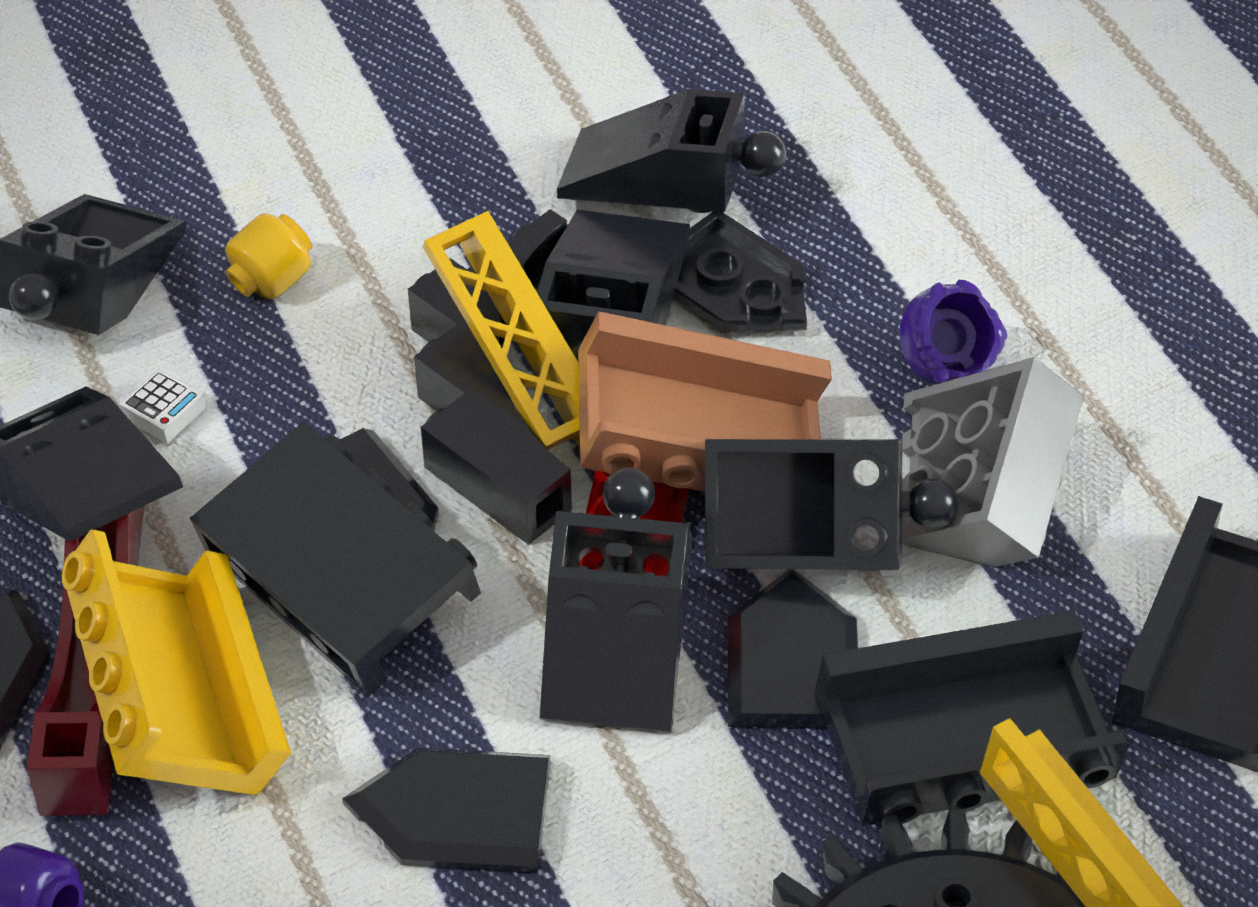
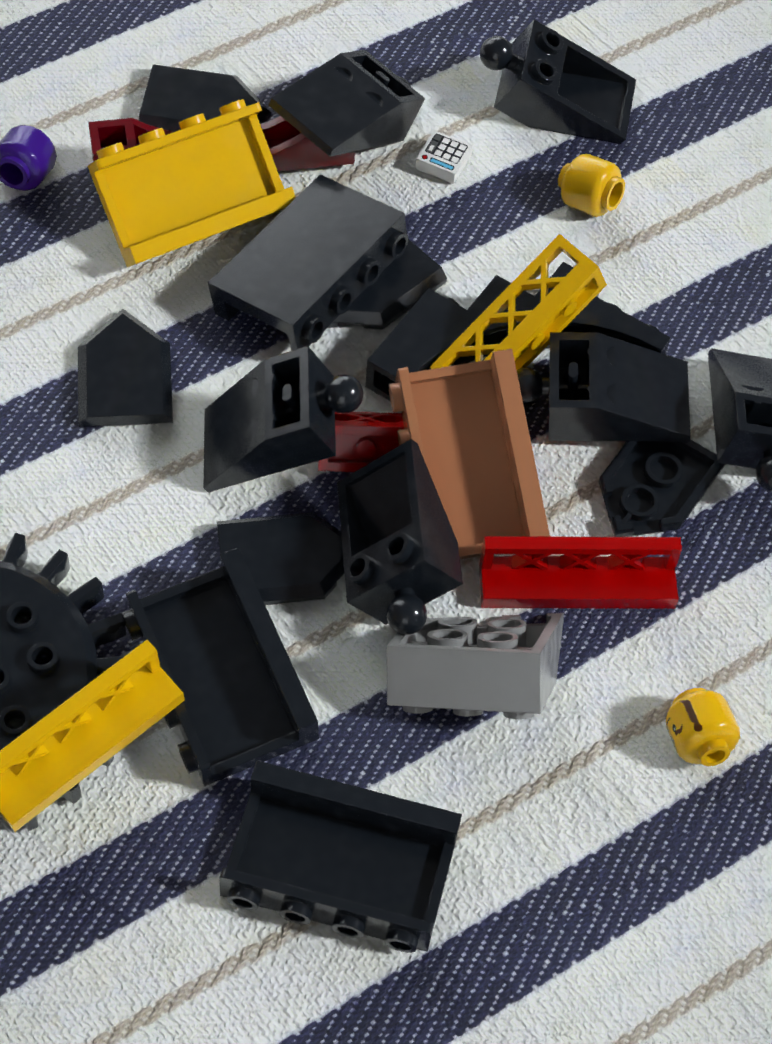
camera: 75 degrees right, 10 degrees up
(864, 355) = (579, 577): none -> red fence
(951, 332) = (607, 626): dark purple hair -> none
(1080, 286) = (702, 727): none -> yellow head

